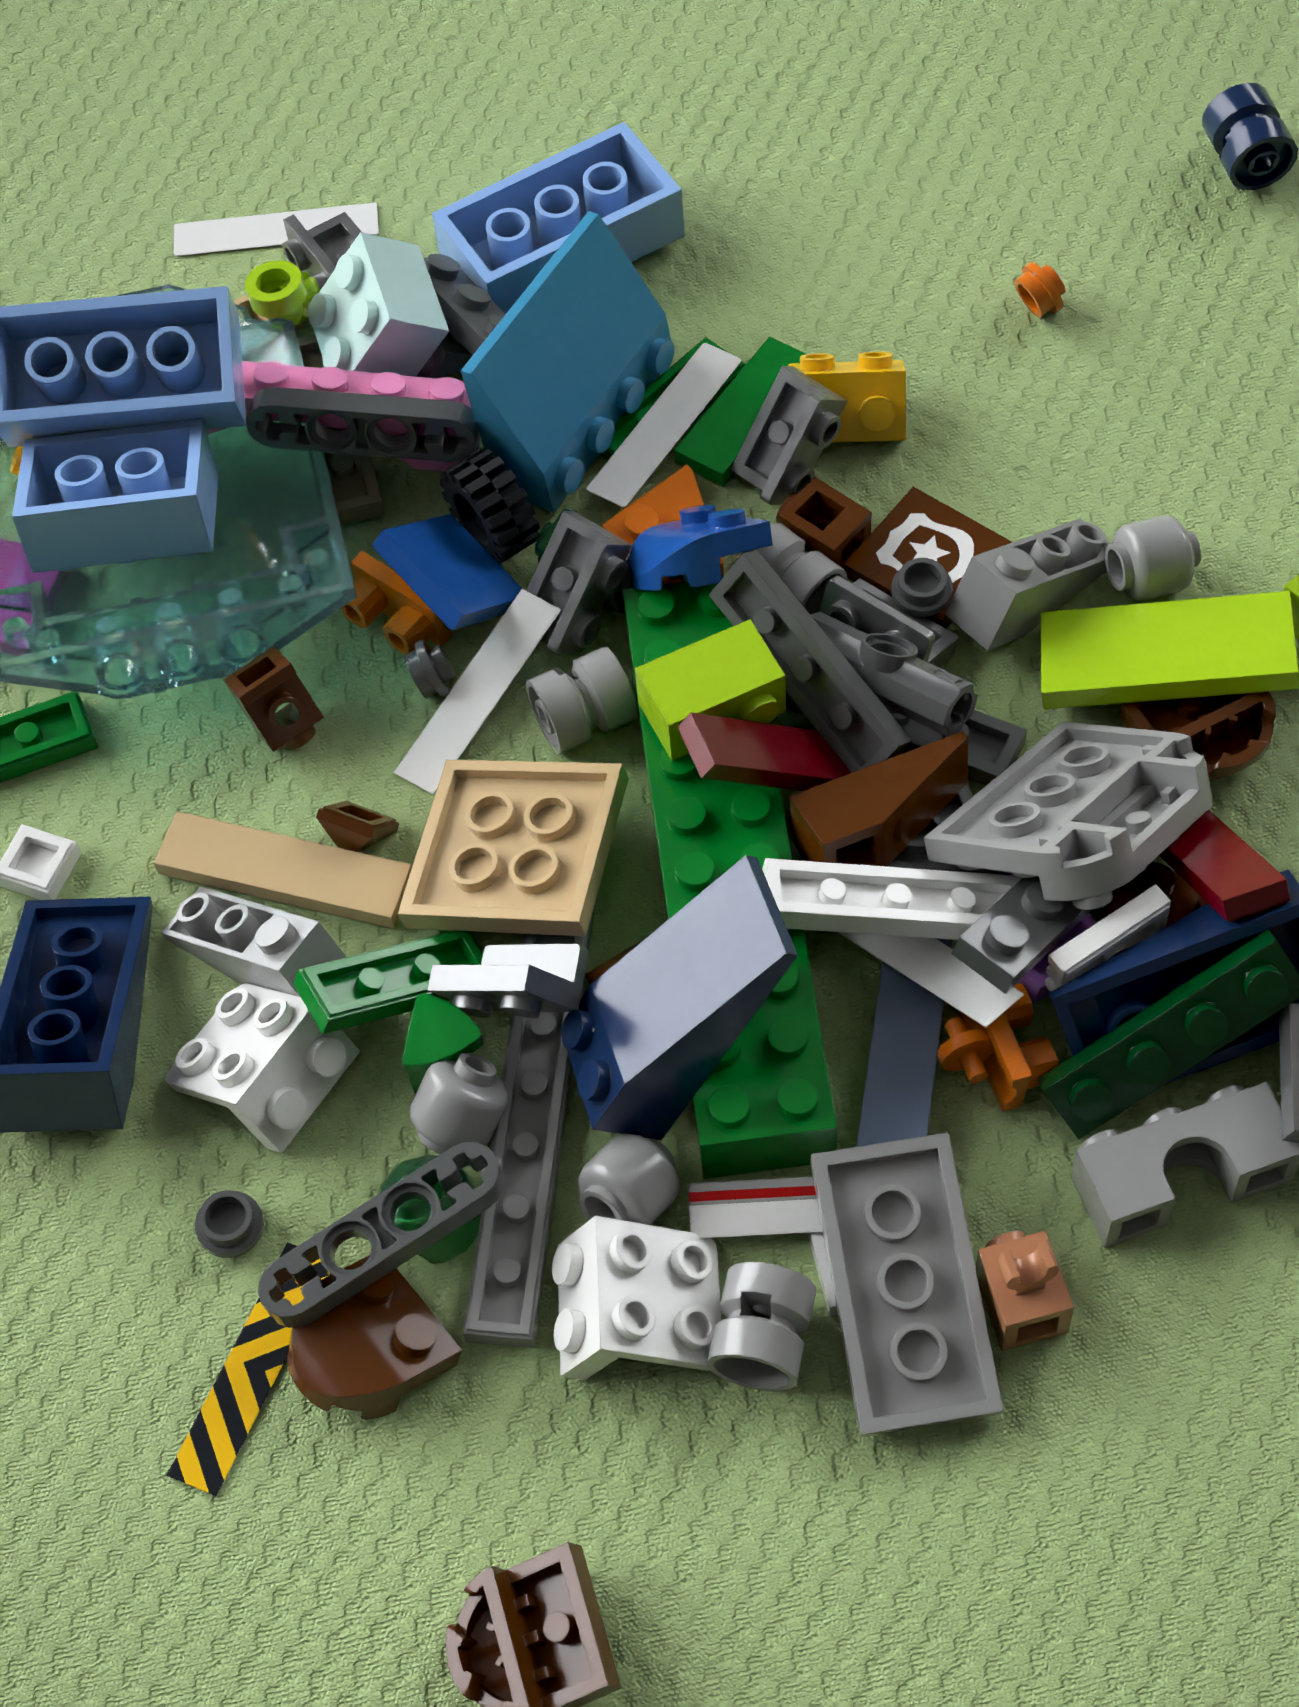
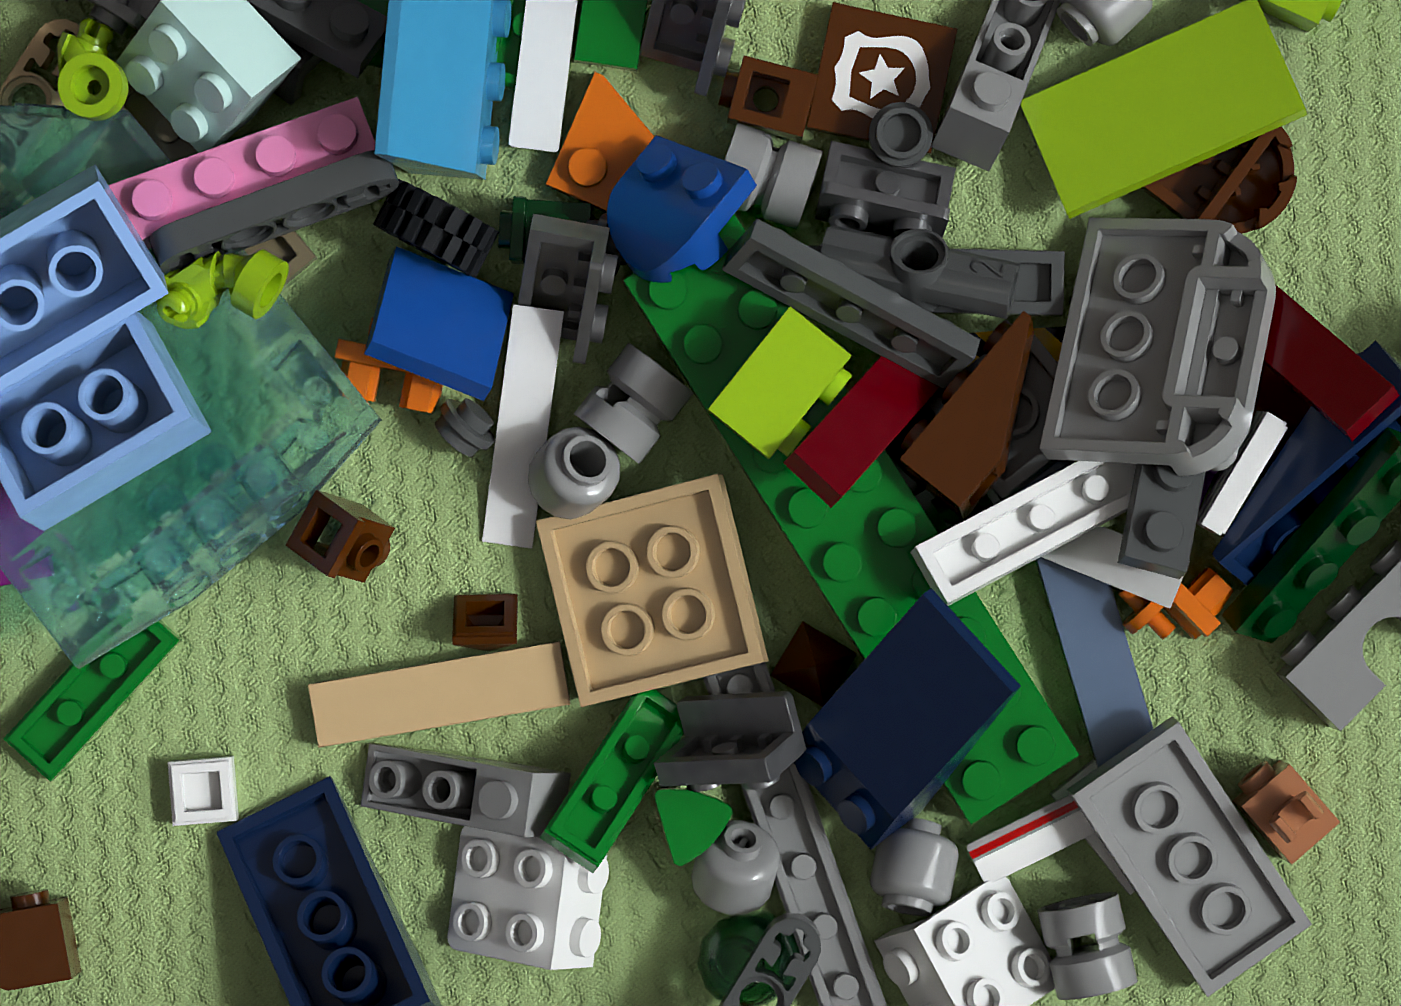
camera: 30 degrees left, 30 degrees up
(312, 461) = (197, 288): none -> lime arm
(499, 725) = (574, 472): none -> light grey head

